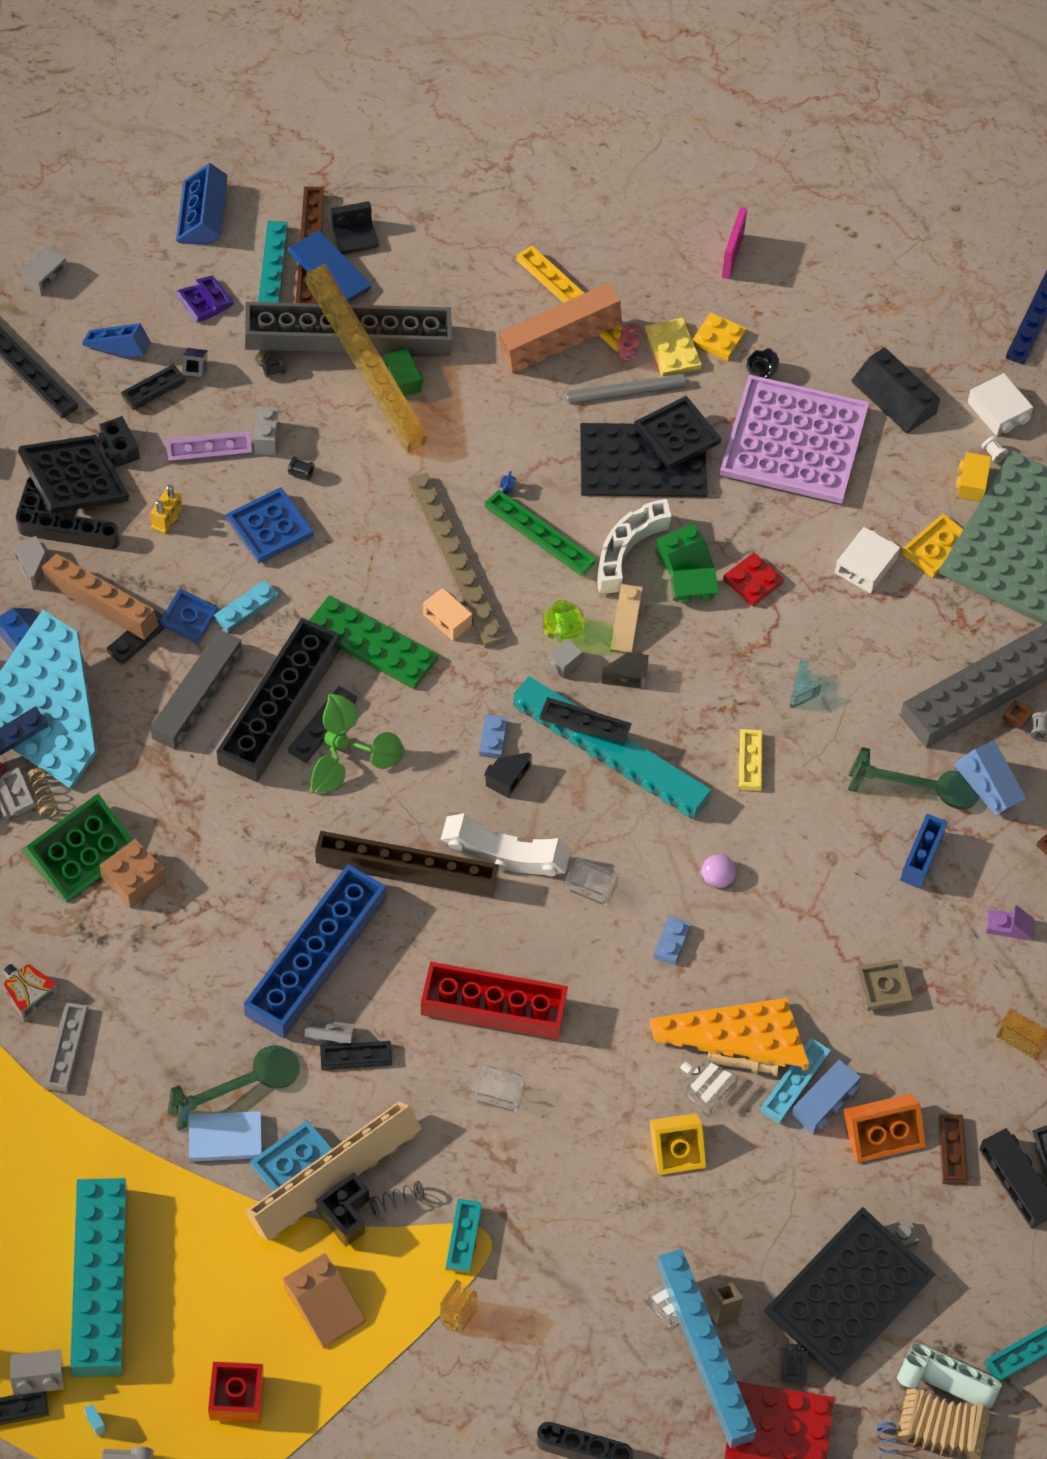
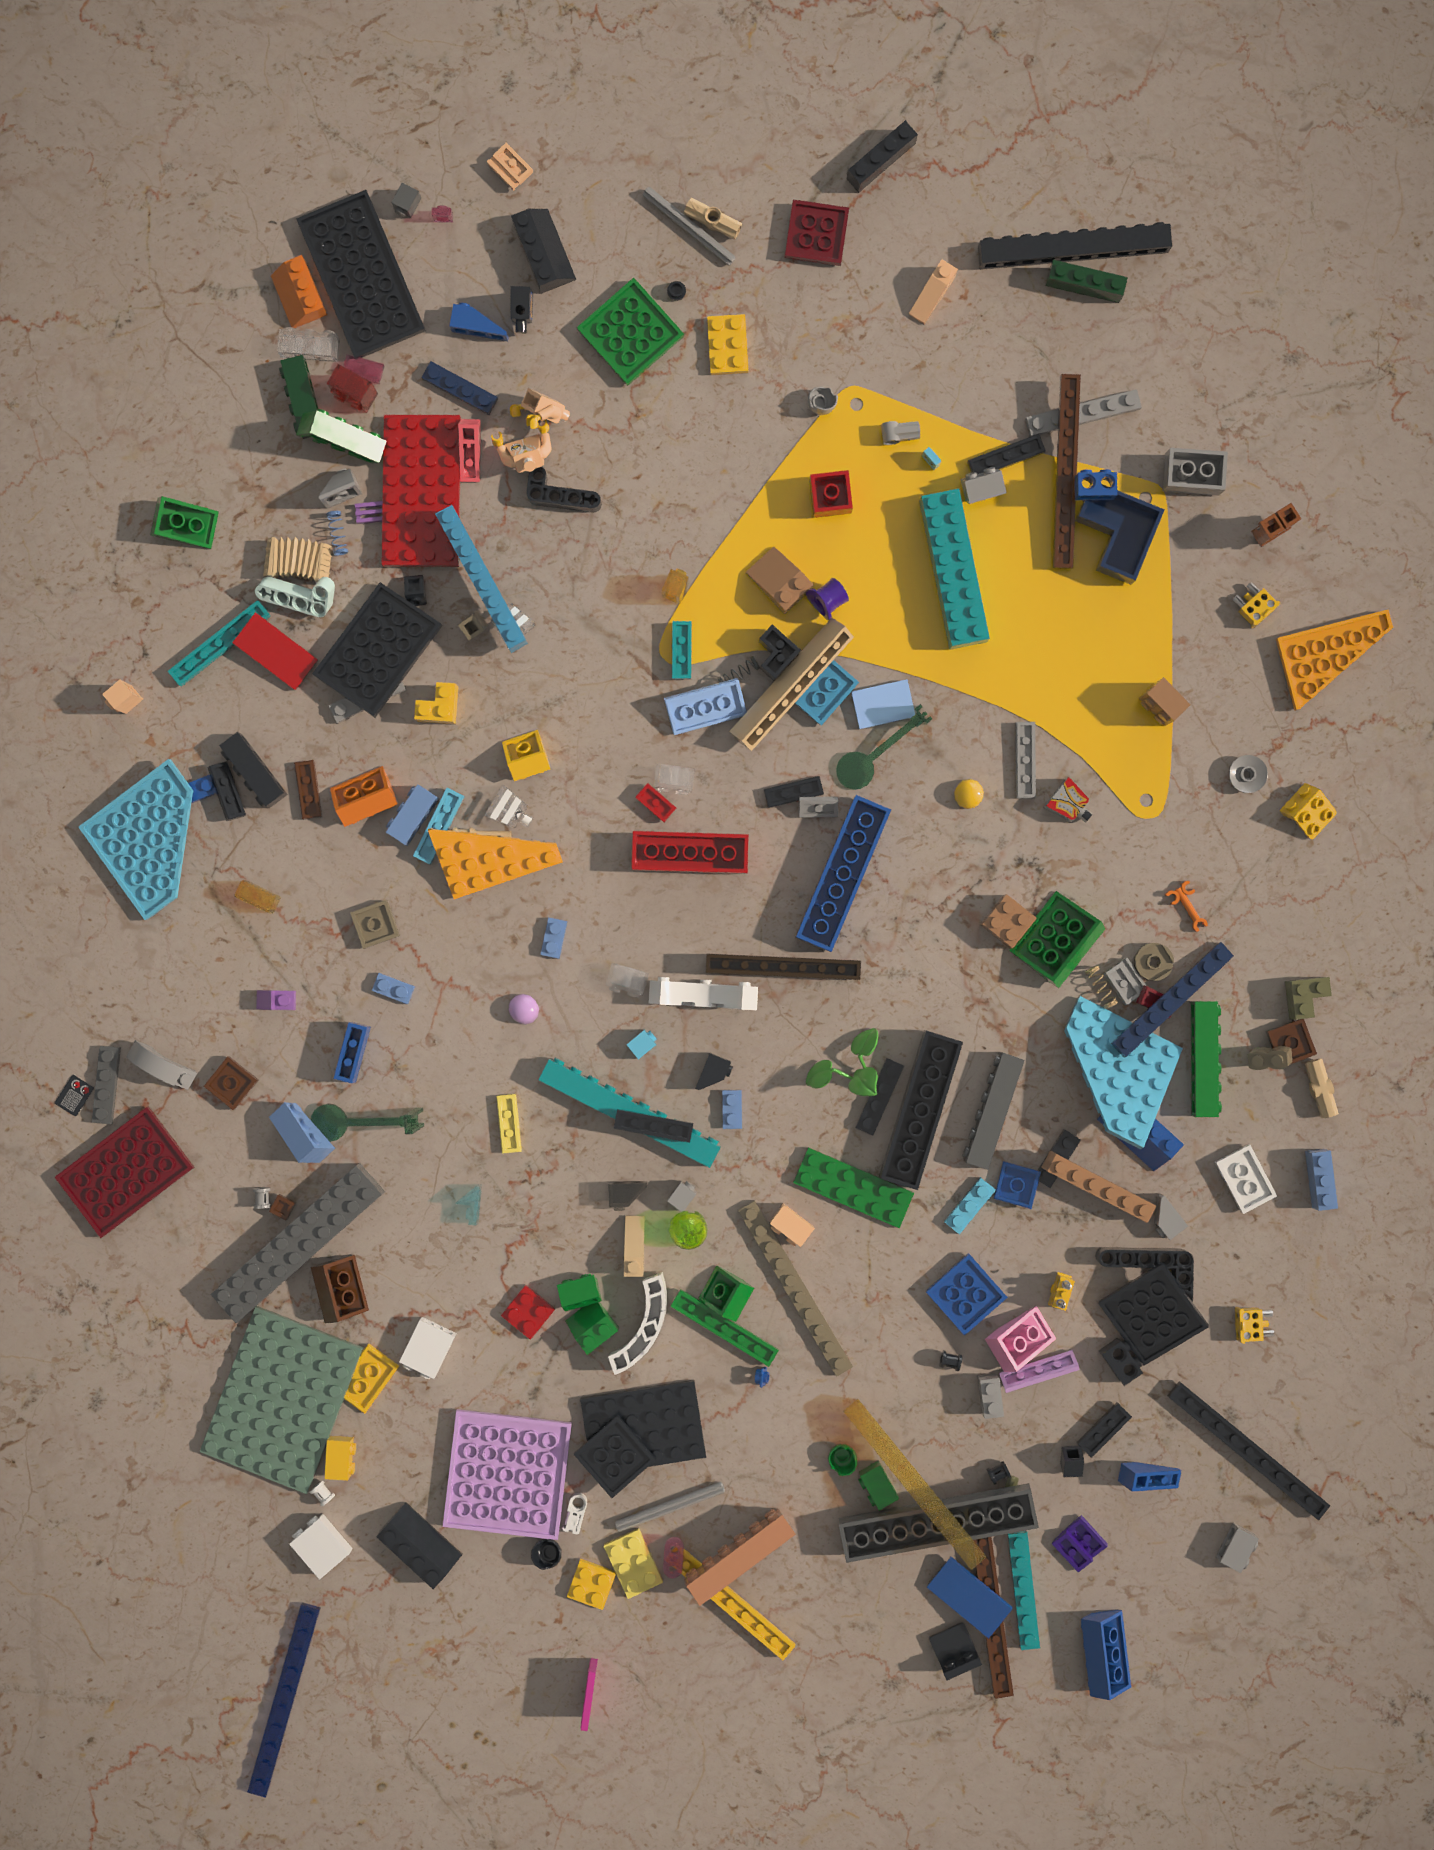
camera: 170 degrees right, 30 degrees up
(144, 1020) = (968, 793): none -> yellow hair
(221, 475) = (1020, 1340): none -> bright pink slope
(266, 1263) = (828, 597): none -> dark purple piece
(435, 399) = (843, 1459): none -> green hair
(445, 1163) = (705, 706): none -> light blue tile
(526, 1065) = (655, 802): none -> red plate
(532, 561) = (726, 1293): none -> green slope
(585, 812) = (642, 1043): none -> medium azure brick
(727, 394) = (575, 1515): none -> white piece
(779, 1210) = (441, 710): none -> yellow brick
(869, 916) = (393, 988): none -> medium blue plate
(960, 627) = (339, 1289): none -> reddish brown slope
(980, 1314) = (275, 651): none -> red tile

